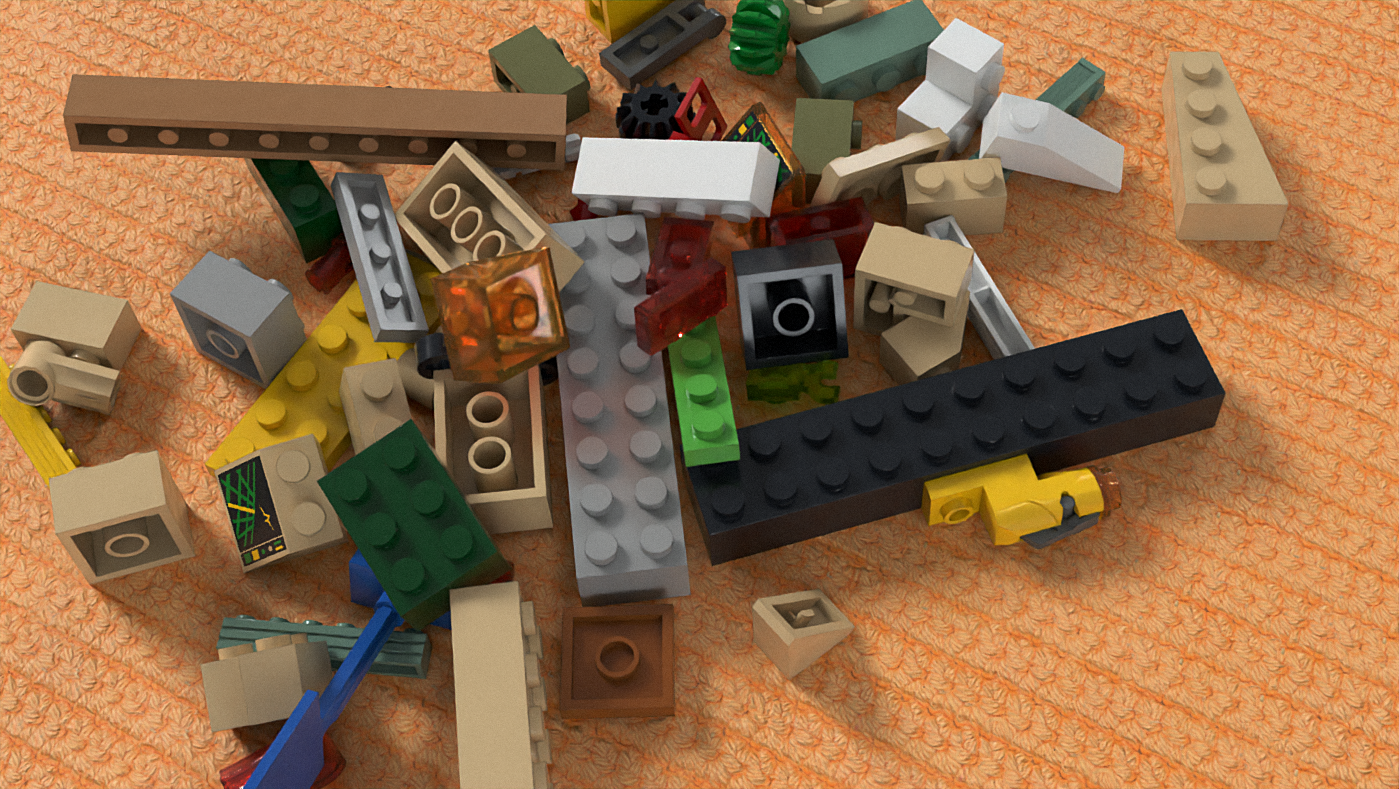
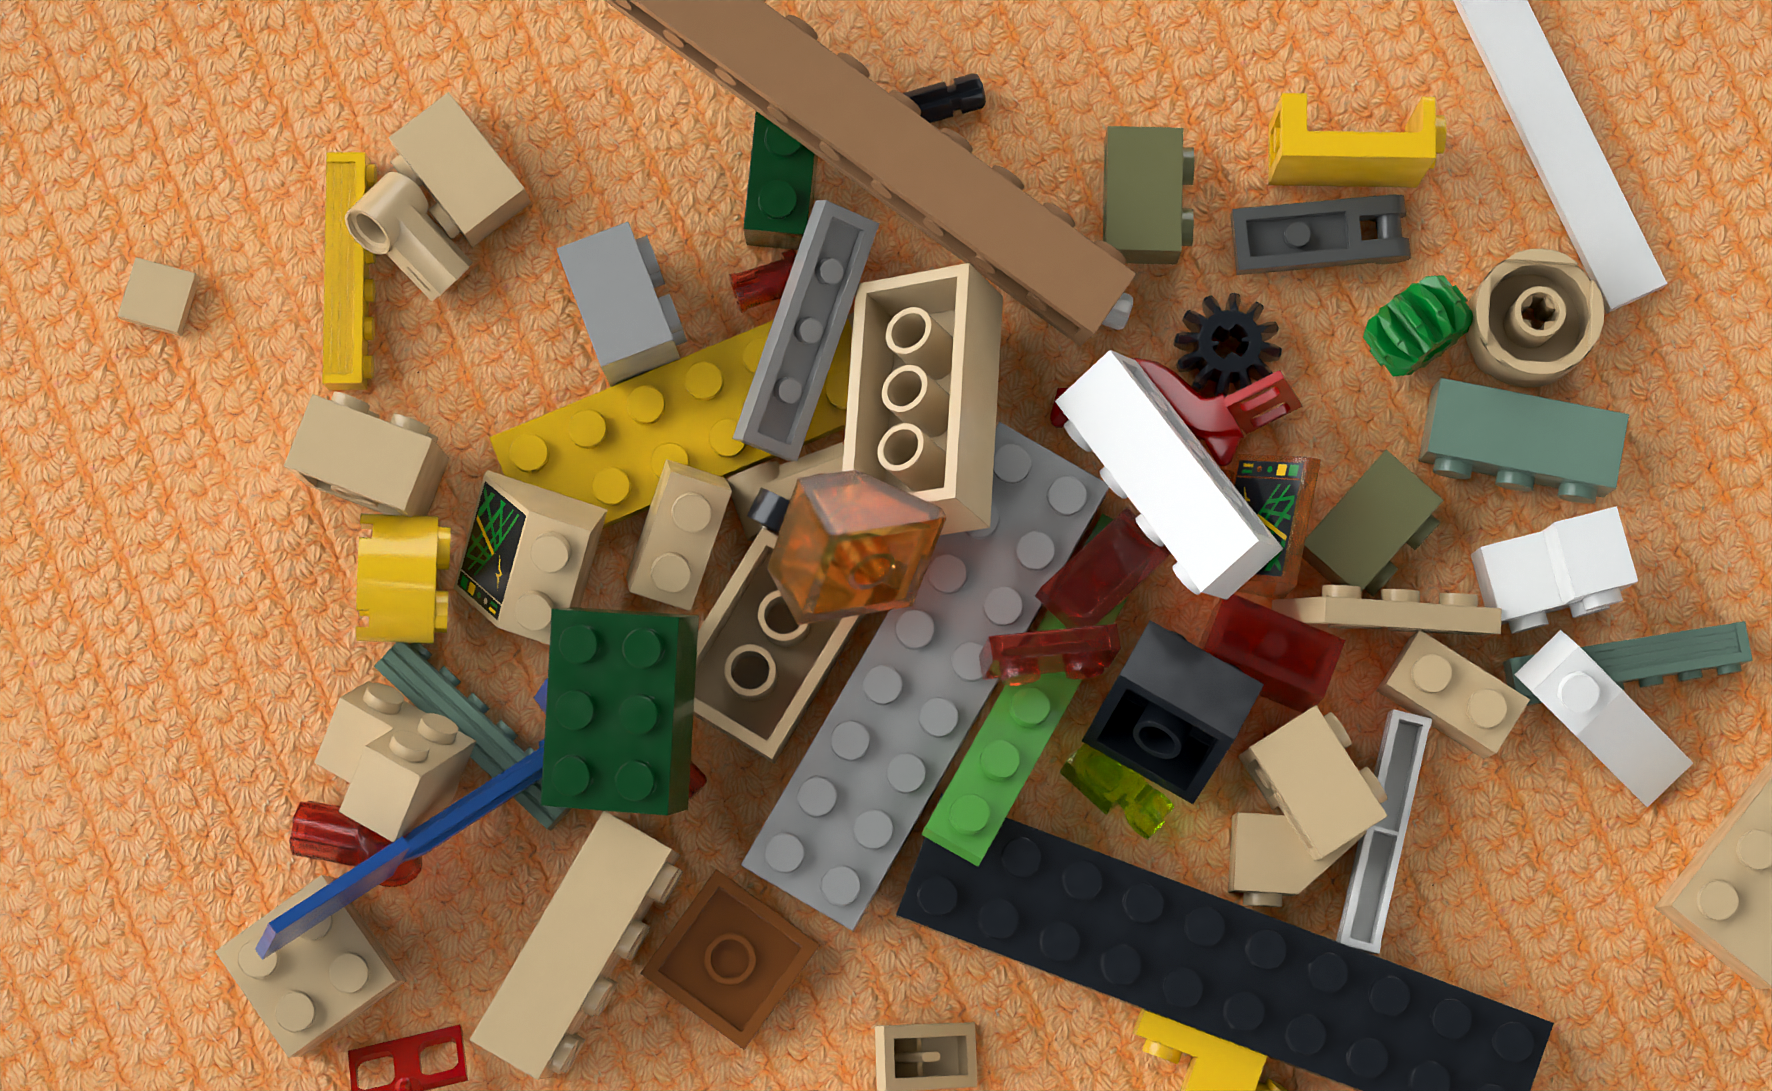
camera: 35 degrees right, 25 degrees up
(198, 573) = (399, 578): none -> yellow brick

